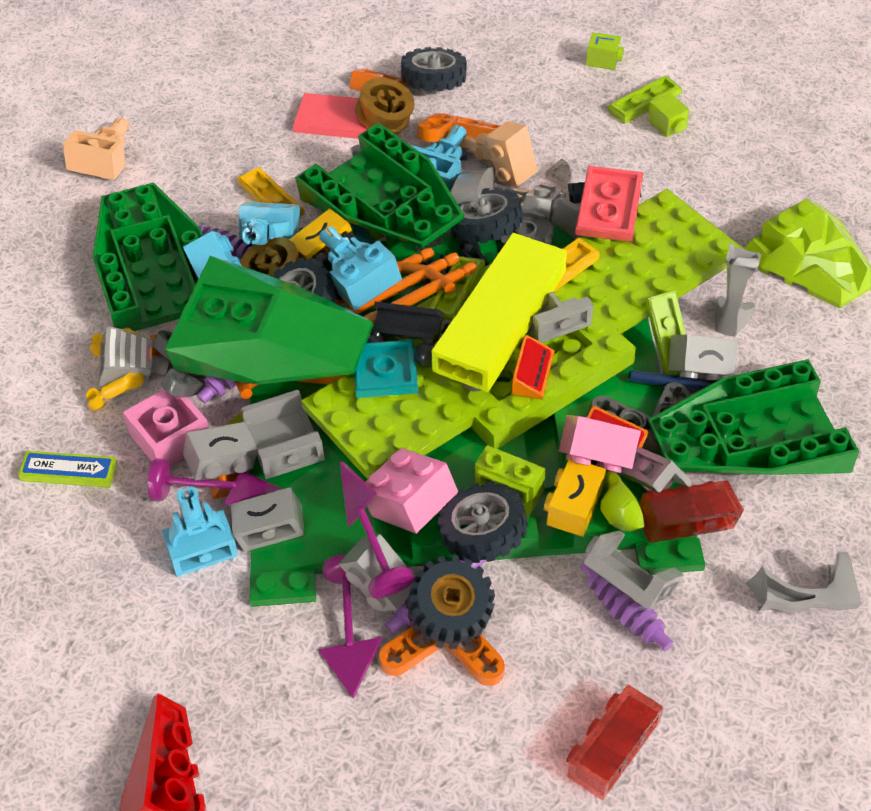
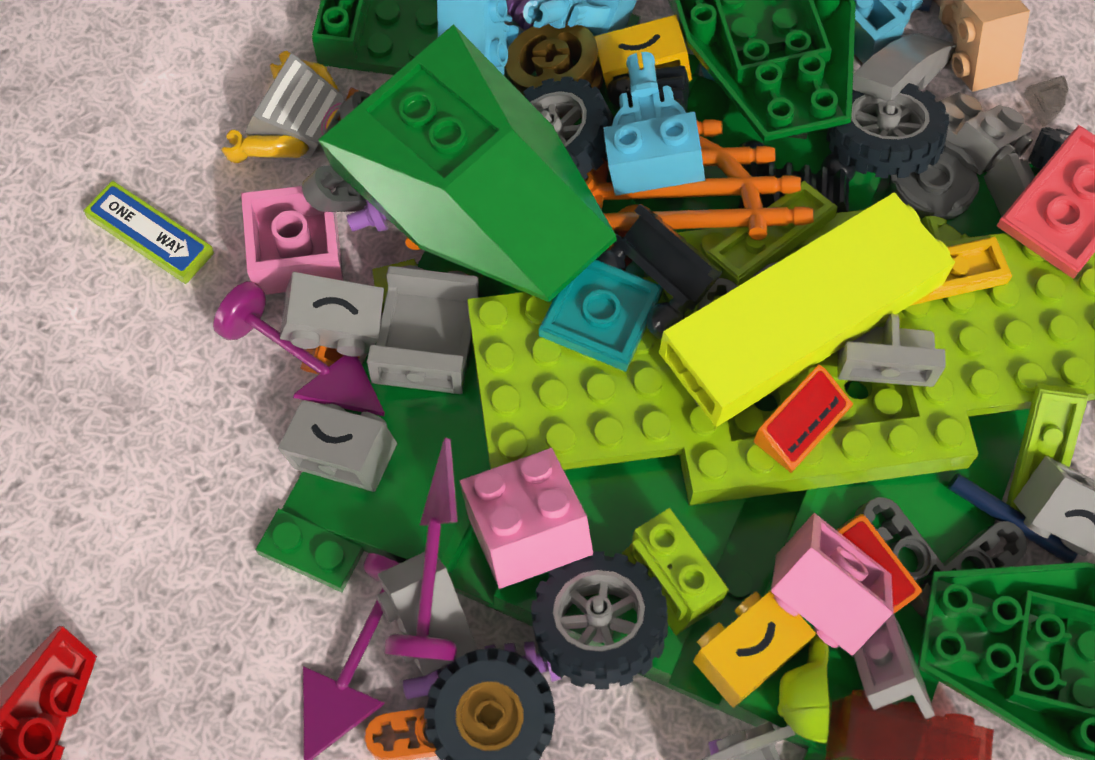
camera: 25 degrees right, 15 degrees up
(199, 536) = (237, 428): medium azure brick -> none

